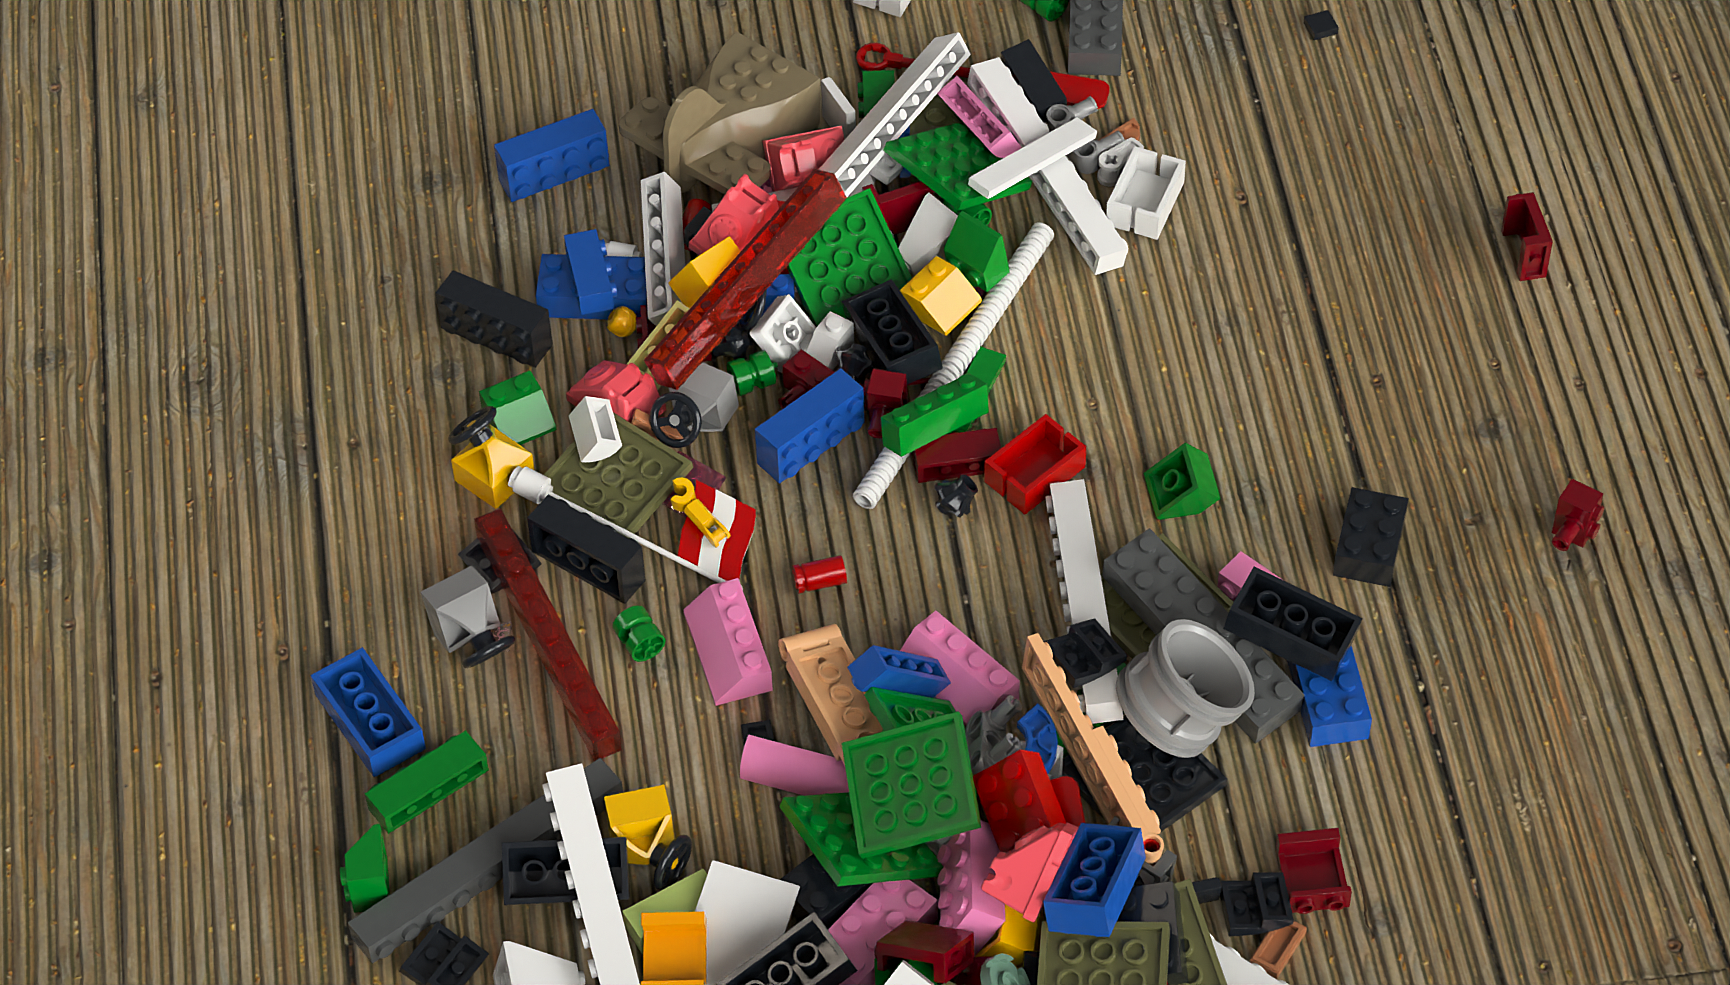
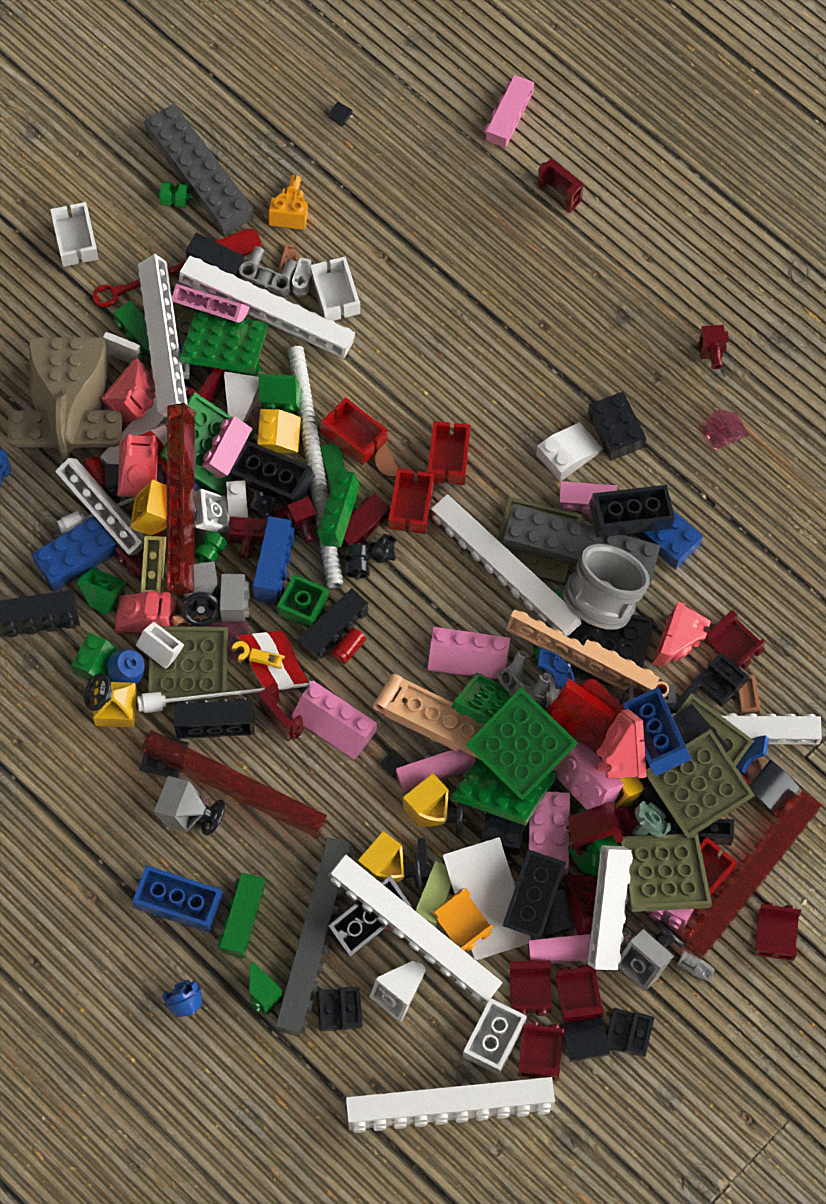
camera: 40 degrees left, 15 degrees up
(273, 822) = (184, 998): none -> blue cone
(541, 434) = (126, 666): none -> blue cone
(587, 341) = (101, 589): none -> green slope
(590, 271) = (75, 549): blue brick -> none
(622, 321) = (109, 564): yellow piece -> none
(639, 634) = (284, 749): green wheel -> none
(669, 572) = (268, 703): none -> dark red panel
(695, 858) = (421, 843): none -> black tile
(726, 436) = (234, 598): none -> light grey brick
(753, 806) = (429, 805): none -> yellow piece
(806, 492) = (302, 601): none -> green brick
(820, 538) = (333, 625): none -> black brick
(861, 272) = (226, 447): none -> bright pink brick
(898, 672) = (452, 681): blue brick -> none
(909, 492) = (357, 561): none -> black wheel
(1032, 158) = (265, 311): white tile -> none
(1034, 355) = (354, 431): none -> red piece
(1045, 403) = (385, 463): none -> nougat tile
(1086, 652) = (539, 600): black slope -> none
(1127, 441) = (449, 452): none -> red piece
(1168, 83) = (289, 208): none -> light orange brick
(1182, 483) = (494, 460): green slope -> none
(1242, 815) = (680, 634): none -> coral piece
(1285, 528) = (568, 450): none -> white slope
(1515, 626) = (724, 429): none -> clear pink slope
(1534, 130) = (509, 111): none -> bright pink brick

